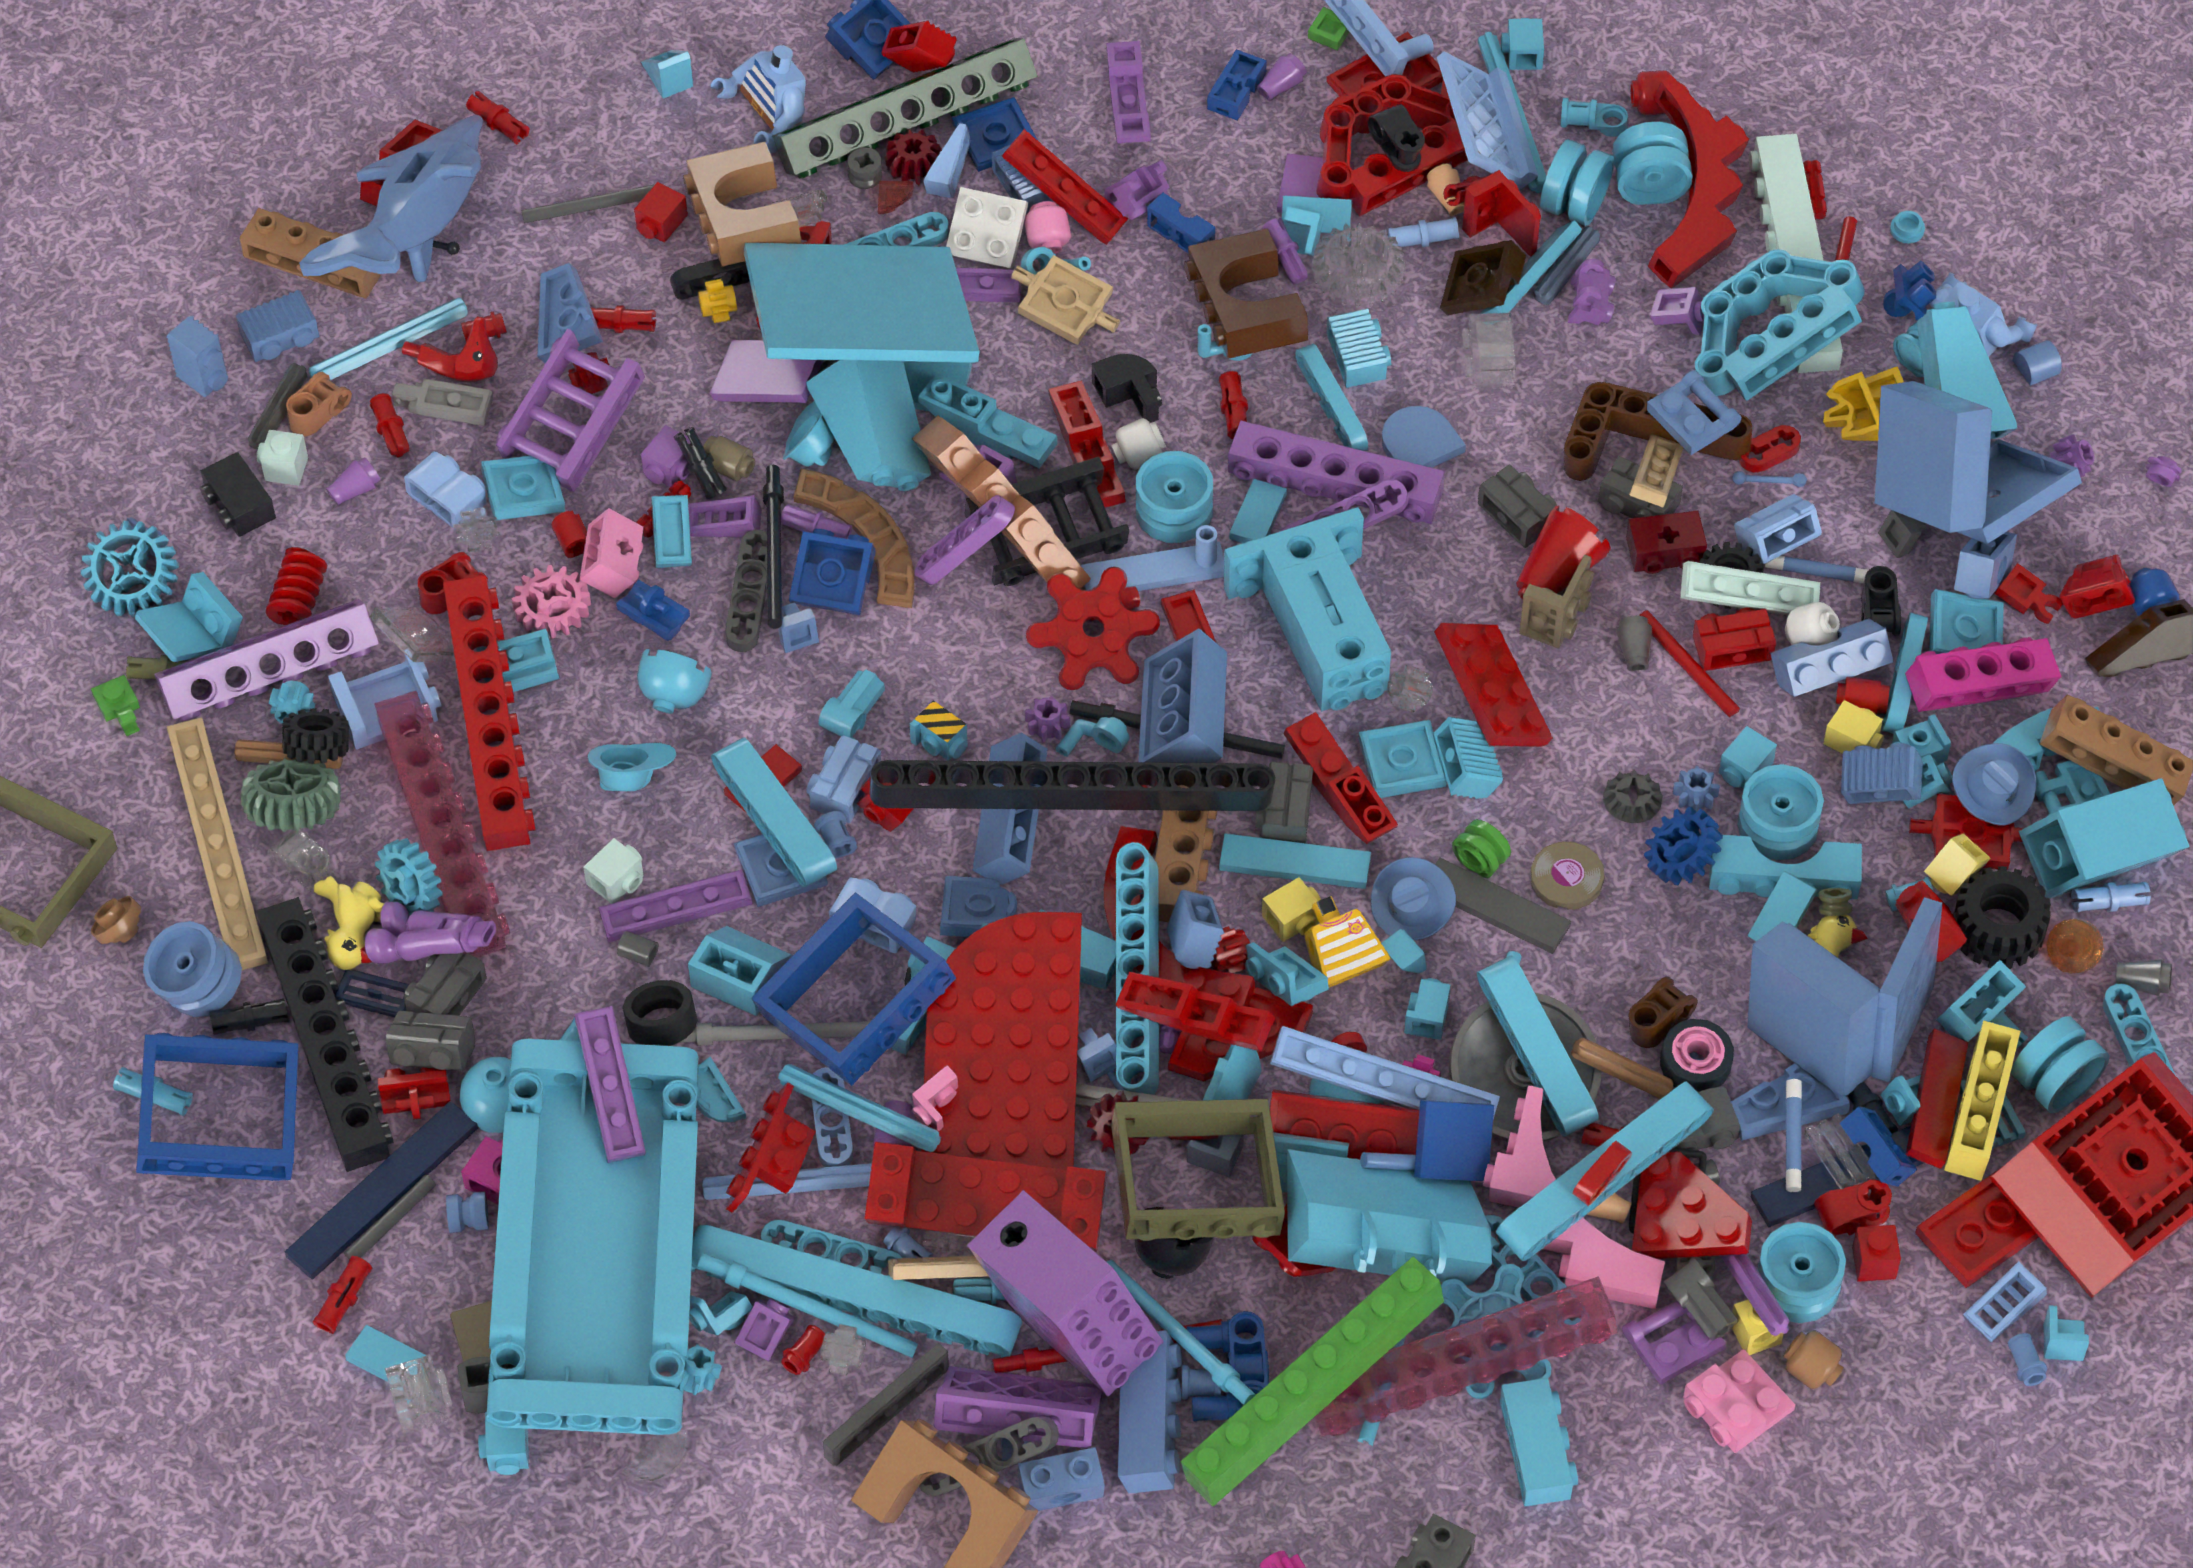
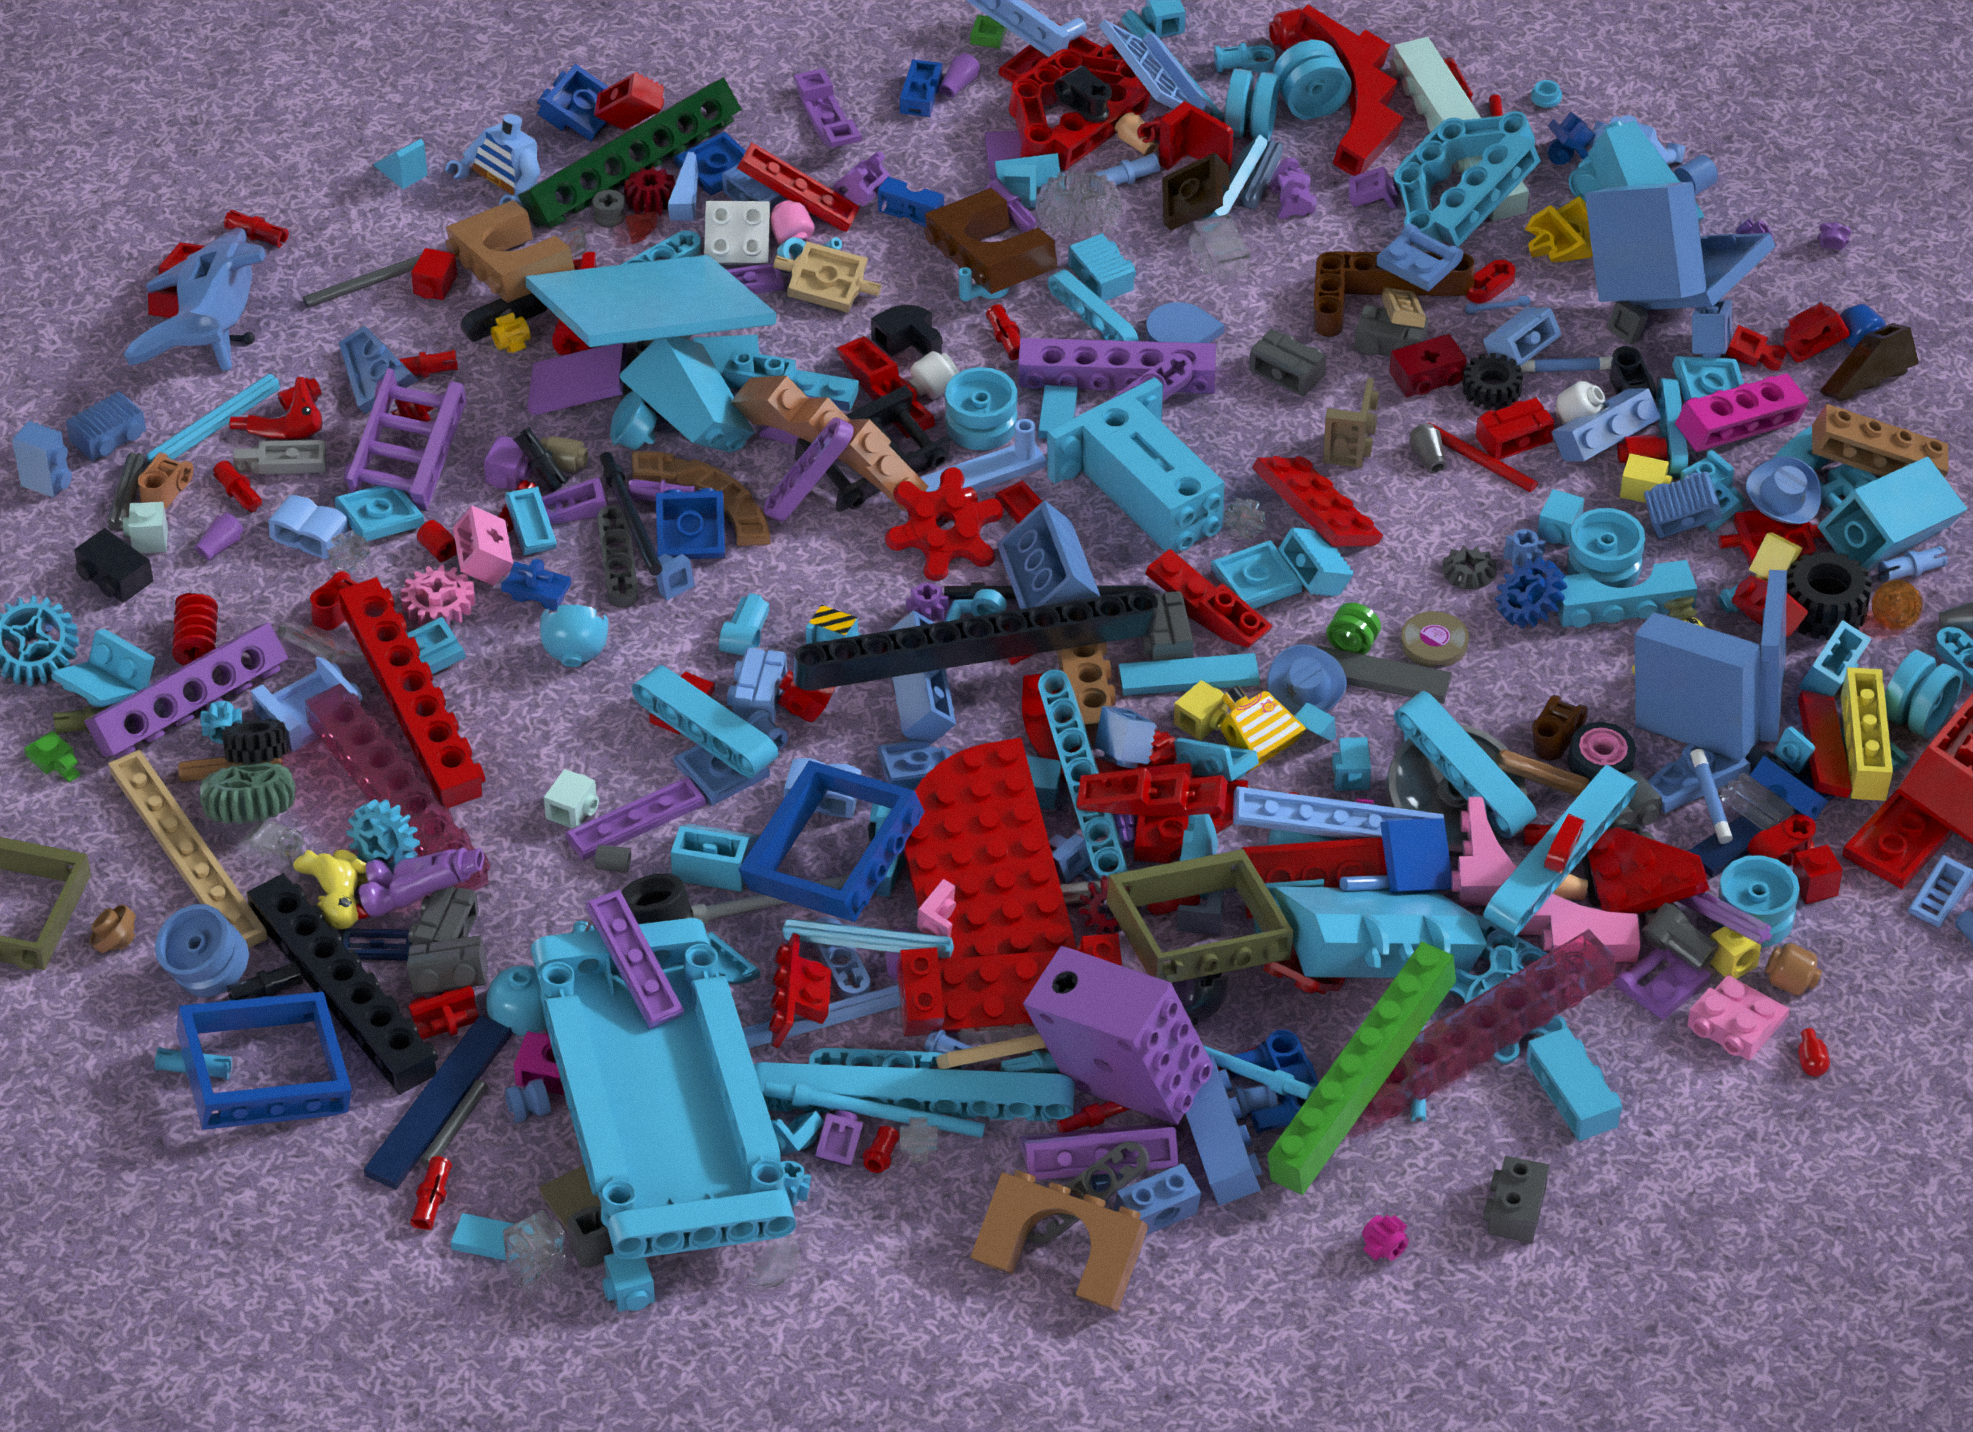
camera: 15 degrees left, 10 degrees down
(285, 242) = (102, 362): medium nougat brick -> none
(629, 765) = (556, 714): medium azure piece -> none
(886, 1405) = (973, 1177): dark grey tile -> none
(1559, 551) = (1341, 384): red cone -> none
(1746, 588) = (1511, 384): light aqua tile -> none
(1786, 903) = (1635, 613): medium azure tile -> none
(1802, 1464) = (1813, 1054): none -> red cylinder

